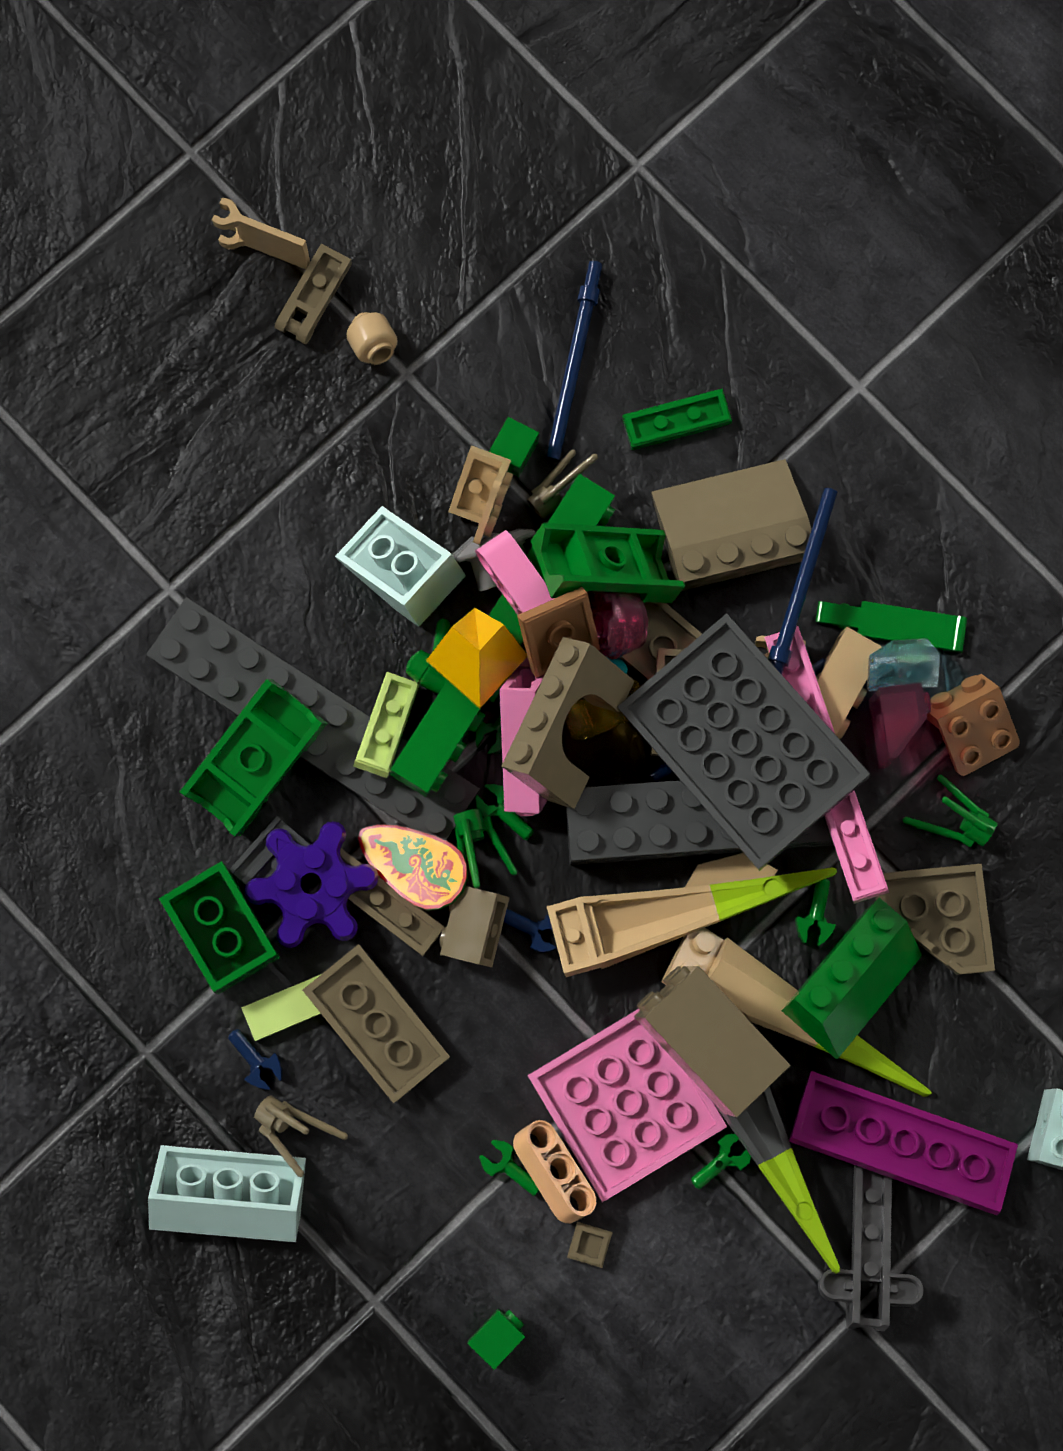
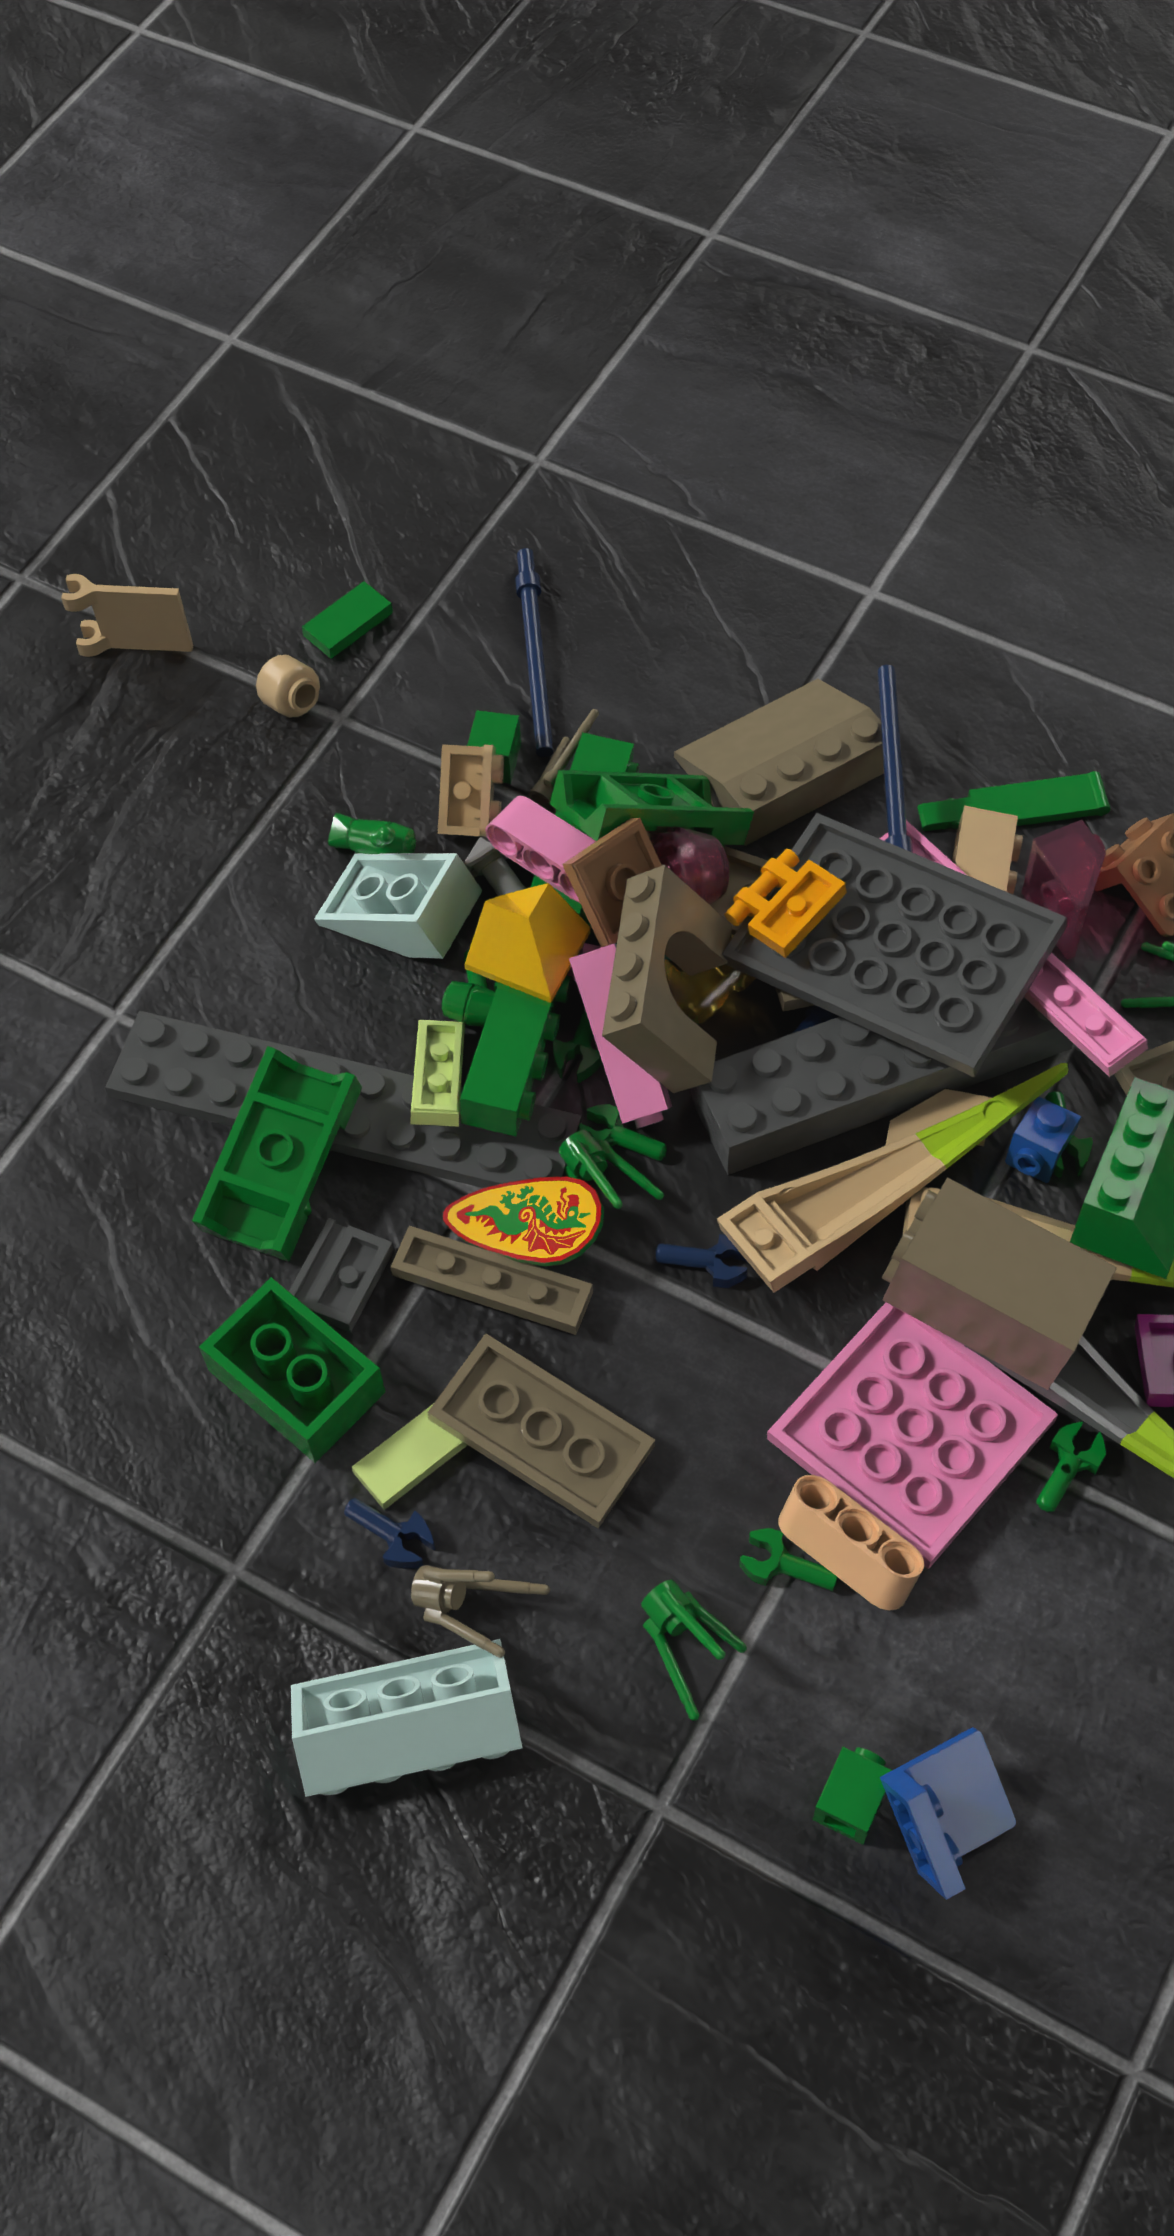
camera: 10 degrees left, 20 degrees down
(313, 293) = (204, 665): dark tan plate -> none
(325, 906) = (400, 1313): dark purple plate -> none
(400, 501) = (370, 836): none -> green piece
(422, 1178) = (676, 1612): none -> green plant
(437, 282) = (347, 619): none -> green tile
(474, 926) = (631, 1269): dark tan brick -> none
(552, 1367) = (948, 1807): none -> blue bracket
(589, 1244) = (933, 1631): dark tan tile -> none
(676, 419) = (675, 675): green tile -> none
(681, 694) = (794, 909): none -> light orange plate
(799, 915) = (1041, 1139): none -> blue bracket
(904, 663) = (1039, 821): clear light blue slope -> none

